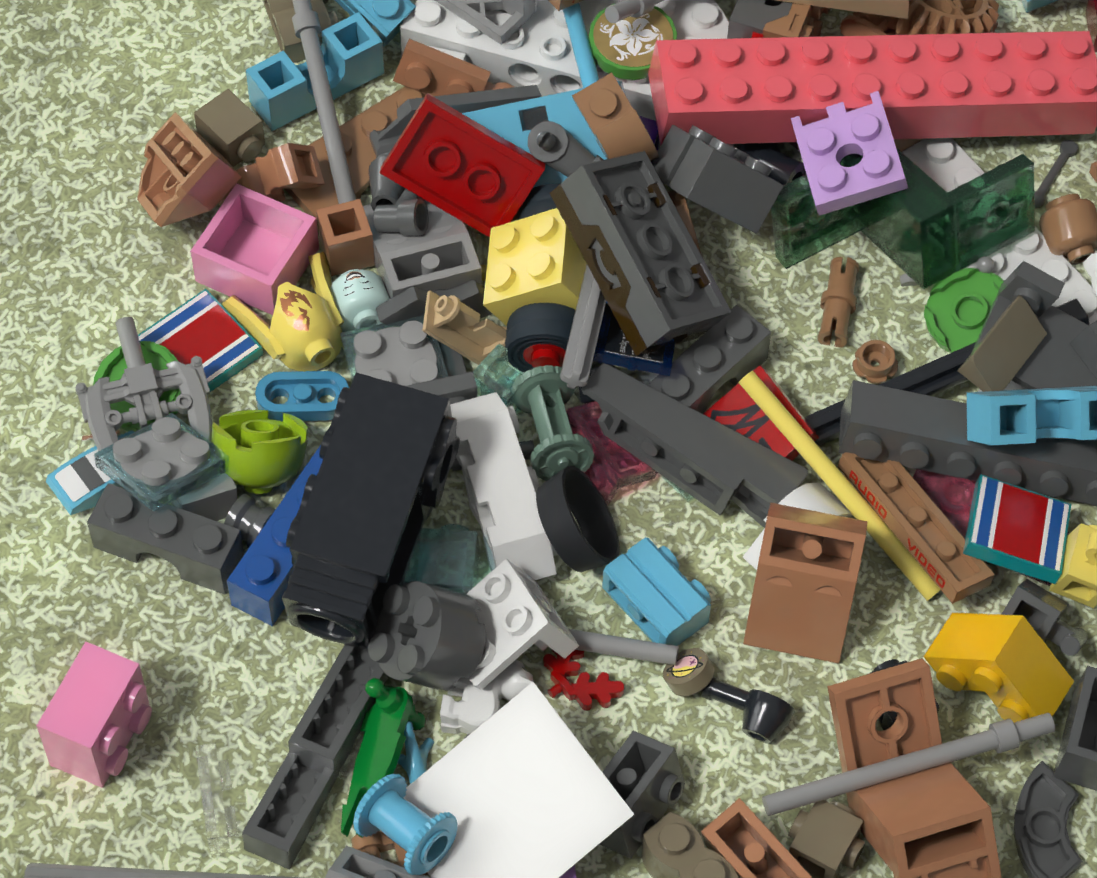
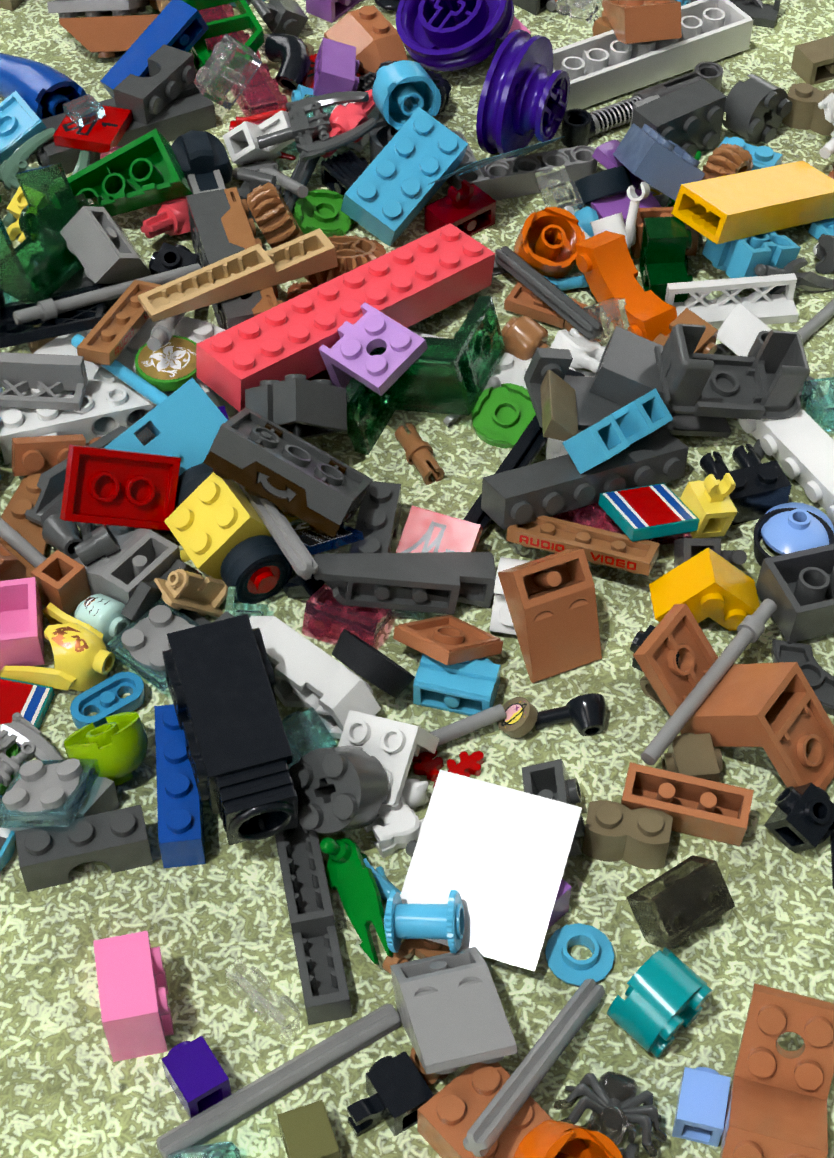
camera: 35 degrees left, 10 degrees down
(102, 829) = (196, 1076): none -> dark purple brick
(248, 517) = (140, 795): dark grey wheel -> none
(544, 395) = (283, 601): sand green hose -> none
(558, 148) = (182, 443): dark grey piece -> none
(613, 119) = (207, 400): medium nougat brick -> none
(679, 542) = (448, 639): none -> nougat tile
(838, 484) = (505, 542): light yellow piece -> none
(875, 351) = (470, 467): medium nougat plate -> none

